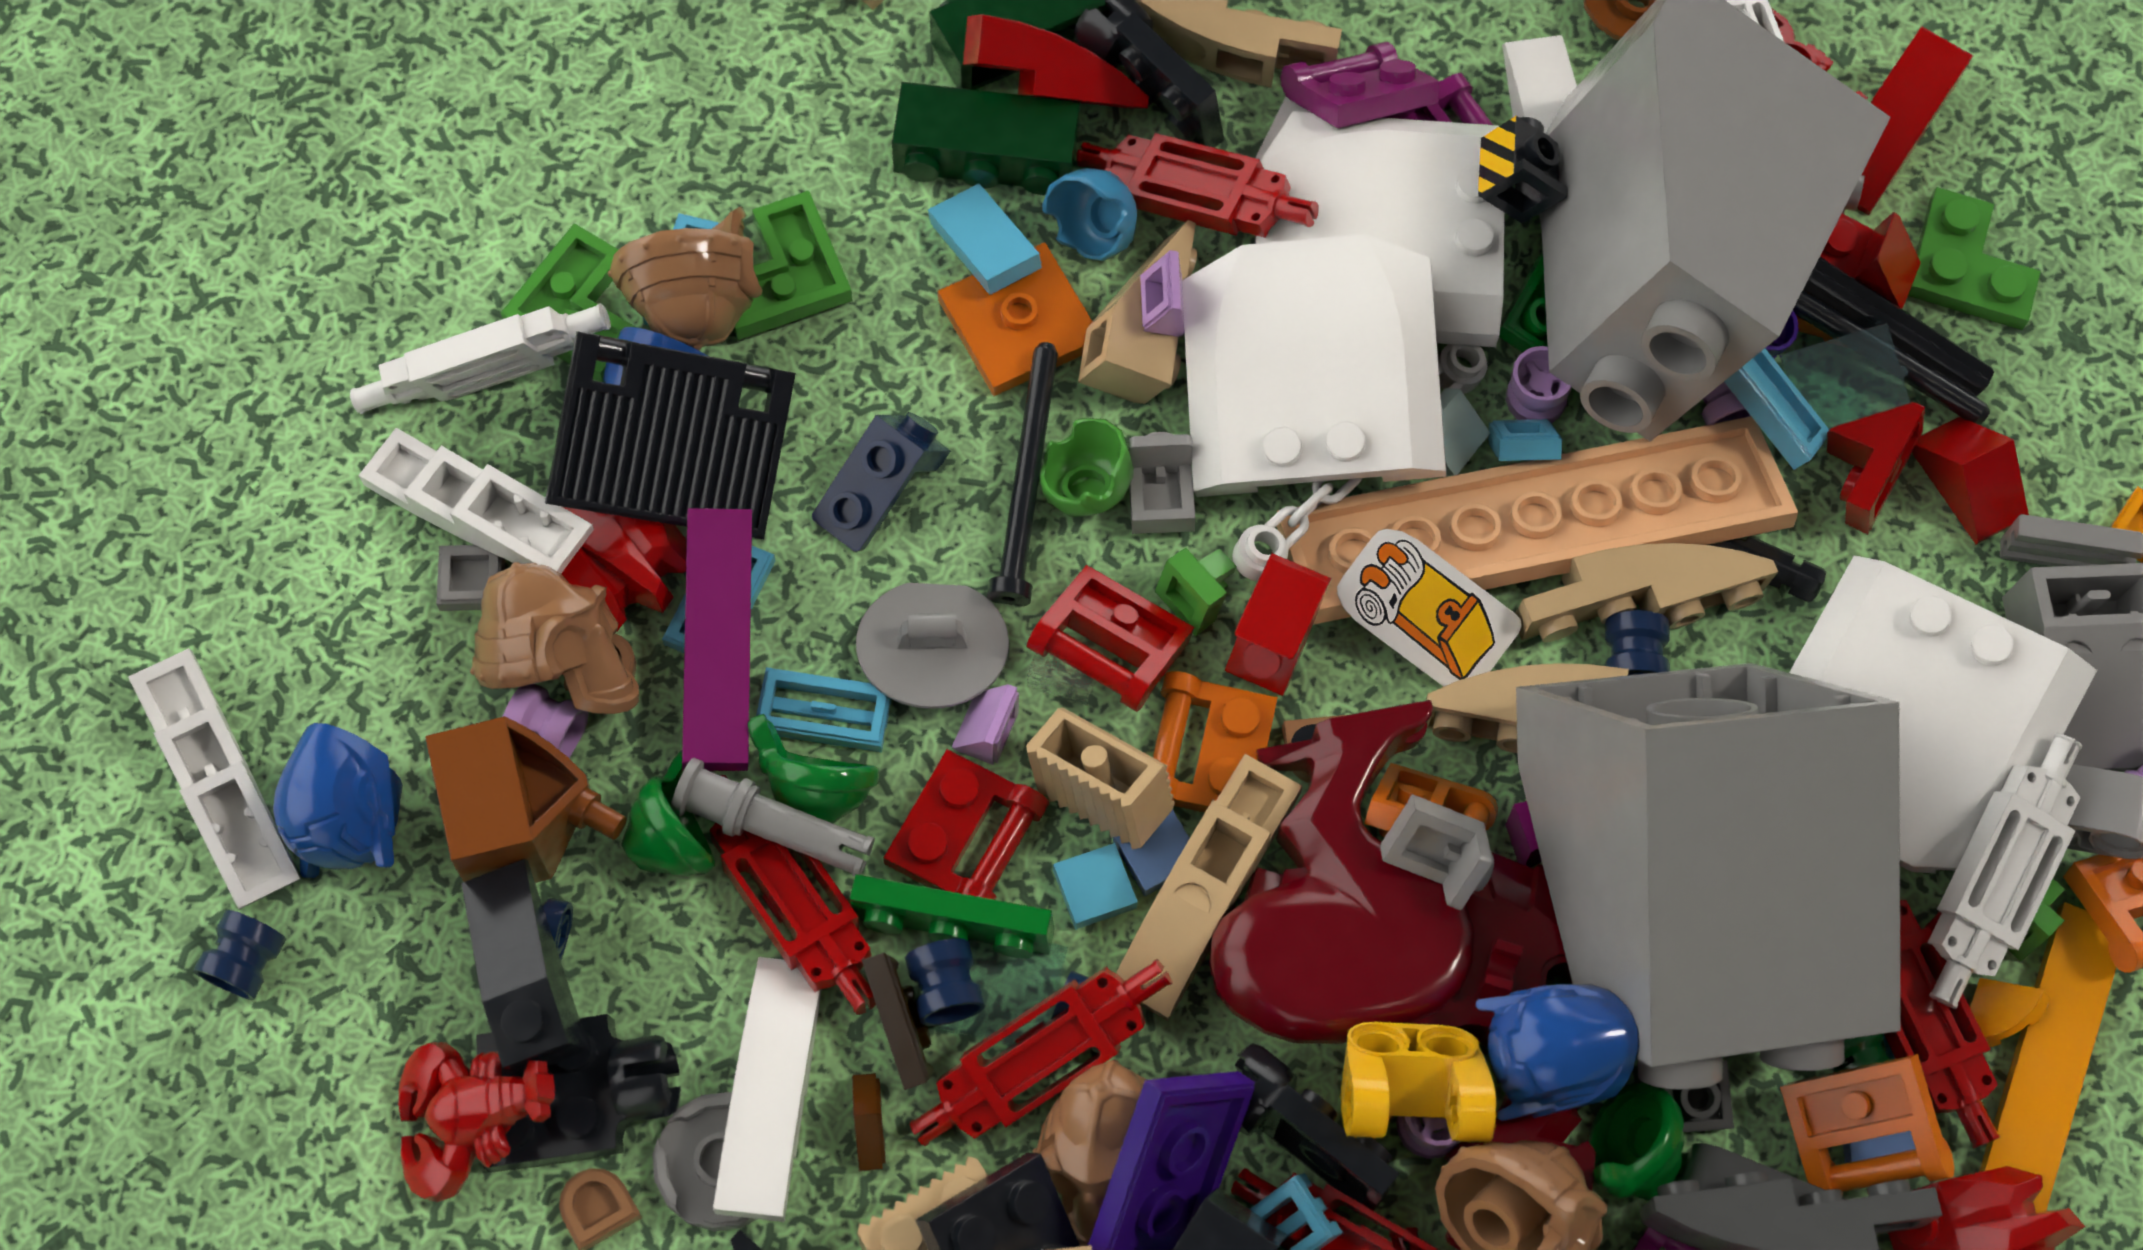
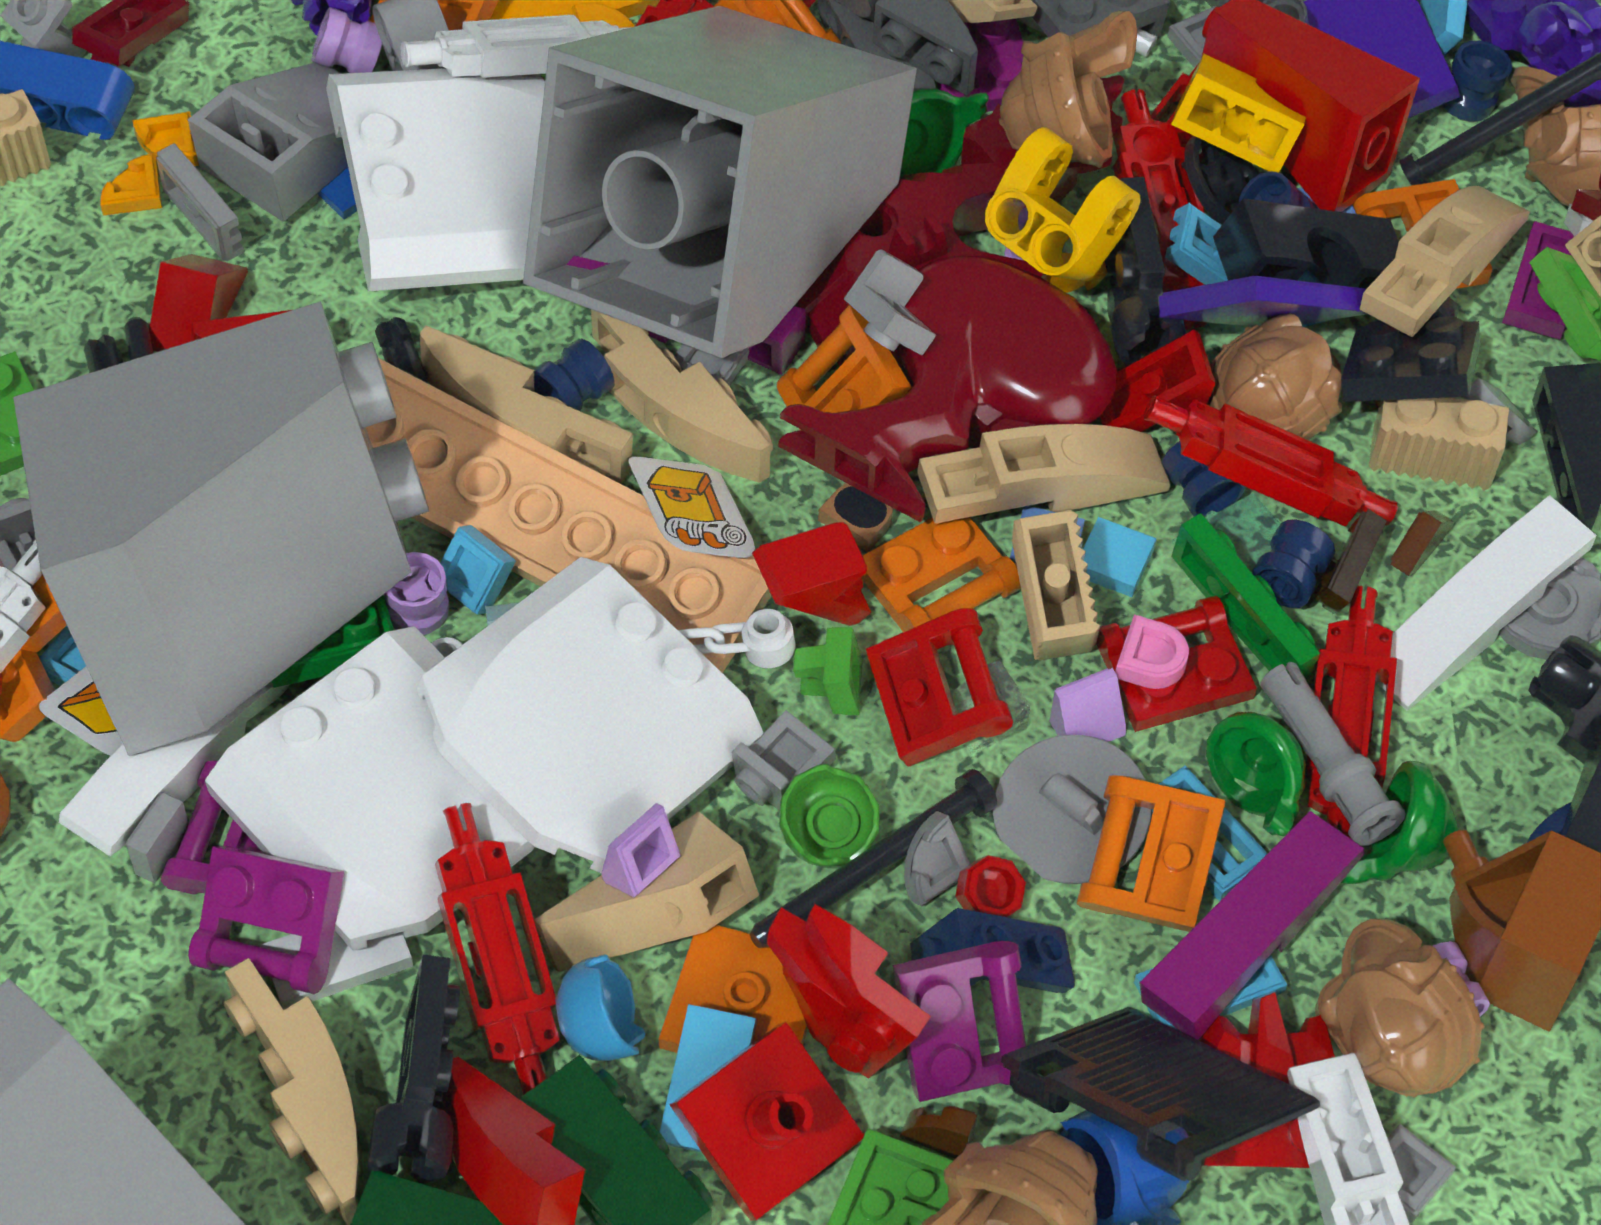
camera: 135 degrees left, 10 degrees down
(805, 336) = (943, 1132): none -> reddish brown tile
(820, 649) = (1173, 858): none -> orange plate
(852, 394) = (947, 1051): none -> magenta plate
(919, 241) = (767, 1121): none -> red tile
(926, 323) = (839, 993): none -> red plate
(929, 525) = (991, 887): none -> red tile
(979, 795) = (1152, 654): none -> bright pink tile
(986, 514) = (933, 859): none -> light grey tile
(1198, 1041) = (1174, 373): none -> red slope
(1493, 86) = (157, 837): none -> light grey tile
(1522, 157) = (260, 691): black brick -> none
(1559, 1047) = (942, 154): blue helmet -> none

